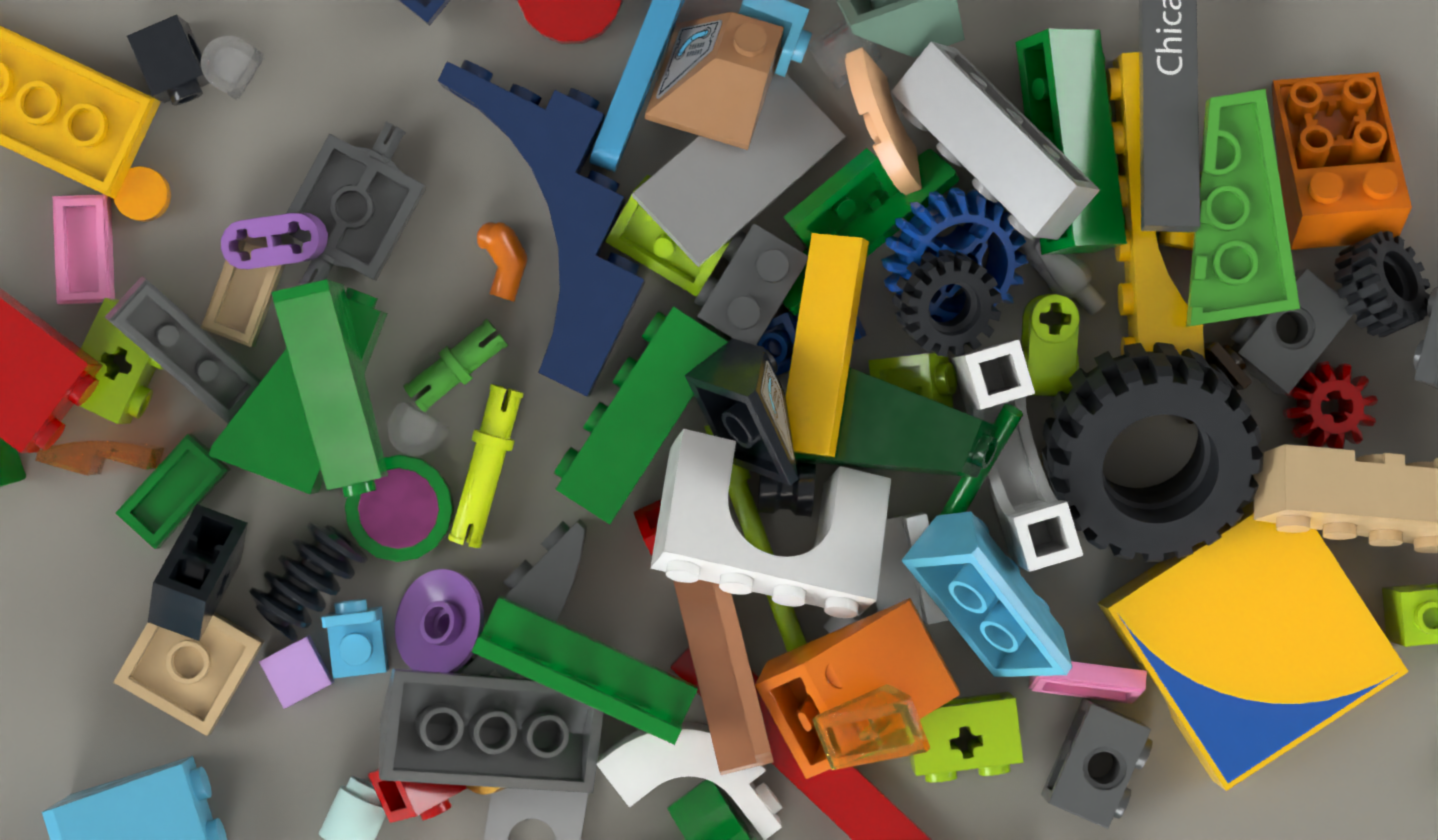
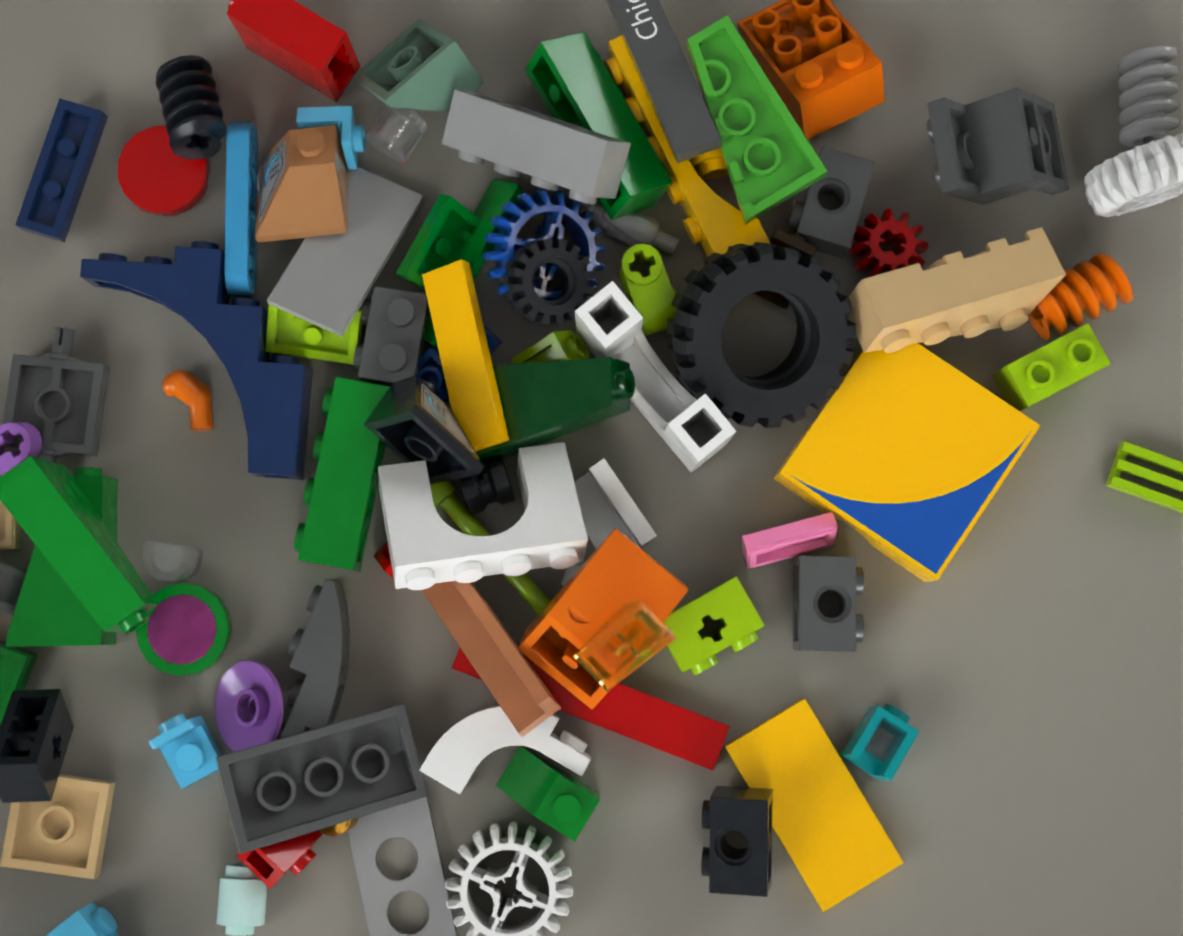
camera: 20 degrees left, 5 degrees down
(296, 671) = (150, 796): lavender tile -> none
(306, 578) = (127, 716): black piece -> none
(455, 365) = (185, 497): bright green pin -> none
(485, 465) = (239, 566): neon yellow pin -> none
(585, 669) = (376, 694): green fence -> none
(876, 105) = (443, 168): light nougat tile -> none
(968, 486) = (630, 420): green bar -> none
(987, 598) = (679, 504): medium azure slope -> none
(1382, 284) = (886, 135): black tyre -> none

